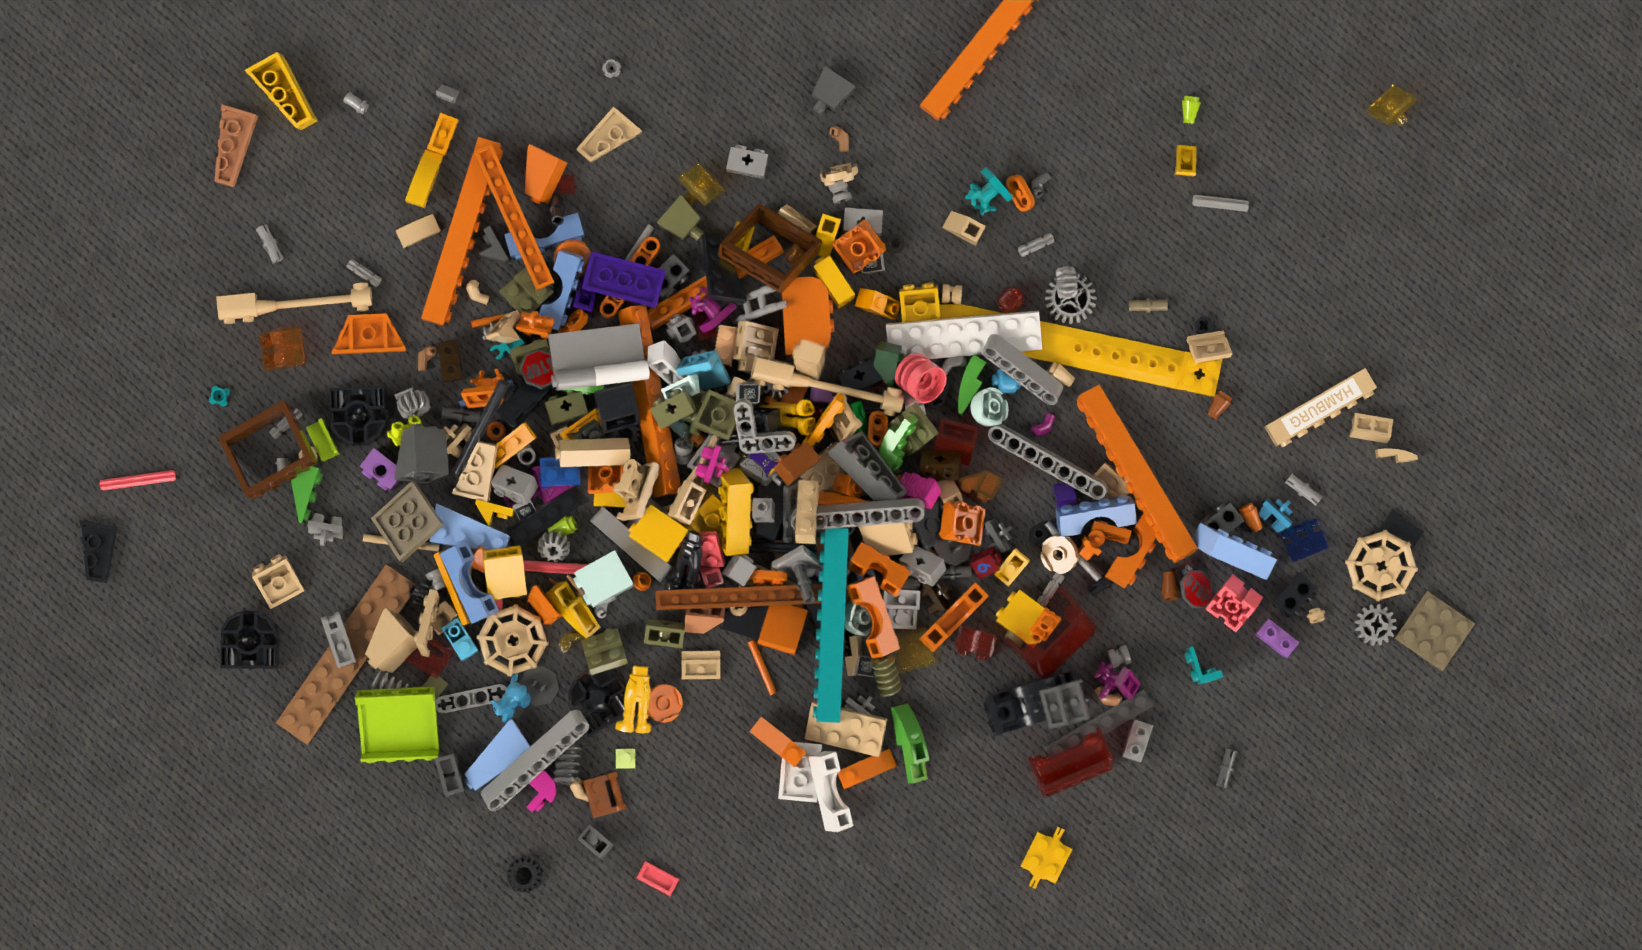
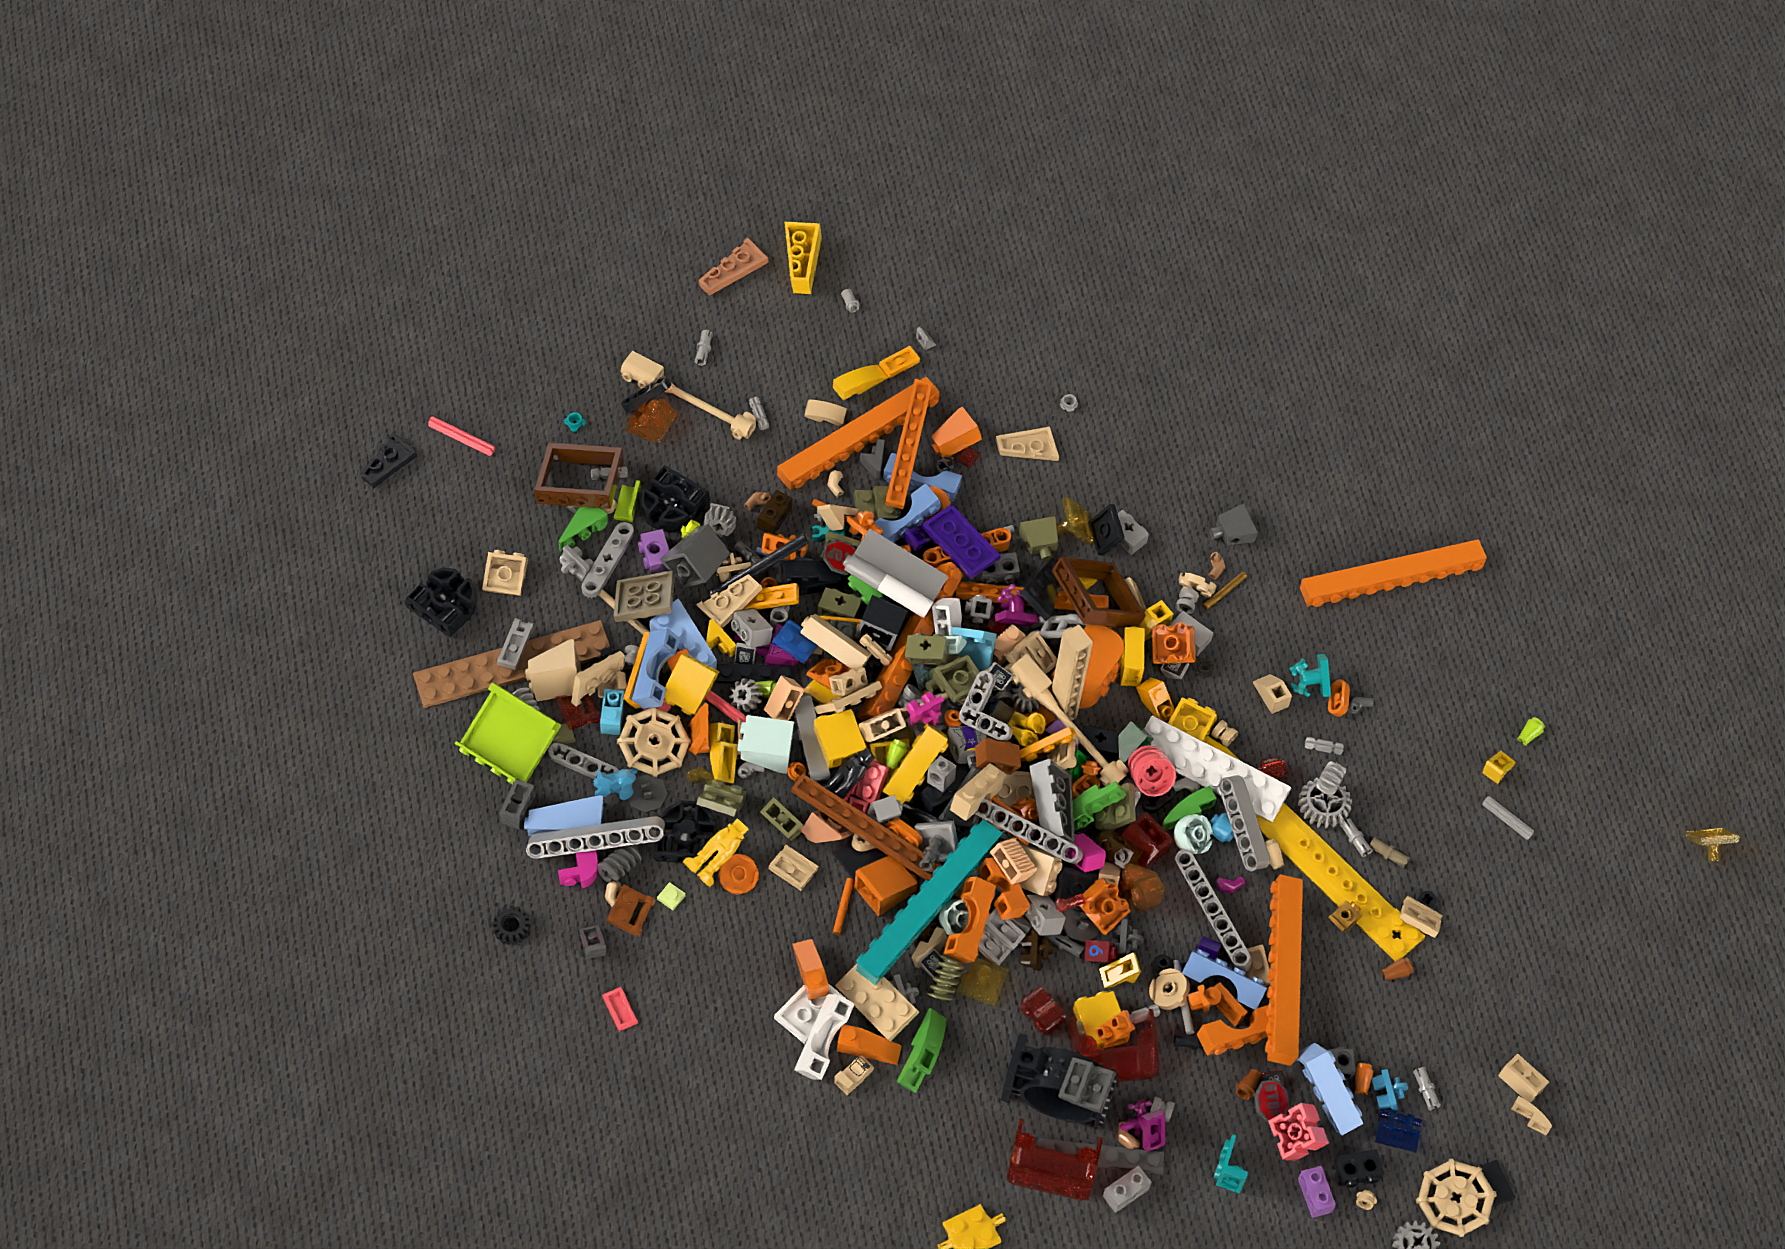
camera: 30 degrees right, 25 degrees down
(265, 319) = (646, 394): none -> black beam
(345, 492) = (602, 570): none -> light grey piece
(368, 335) = (725, 455): orange wing -> none
(588, 530) = (784, 699): none -> light nougat brick
(629, 433) = (875, 649): none -> tan axle
(713, 515) = (896, 753): none -> lime cone
(731, 177) = (1106, 529): none -> black tile
(733, 457) = (949, 721): none -> orange plate
(862, 156) = (1225, 590): none -> pearl gold bar
(870, 409) = (1091, 767): none -> orange plate
(872, 799) = (853, 1075): none -> tan leg
(873, 545) = (1013, 860): none -> light nougat brick
(935, 549) = (1064, 905): none -> clear red arm
(954, 617) = (1060, 973): orange arch -> none
(1114, 311) = (1356, 837): none -> light grey pin
(1151, 382) = (1345, 924): none -> pearl gold brick
(1320, 407) = (1488, 1031): tan brick -> none

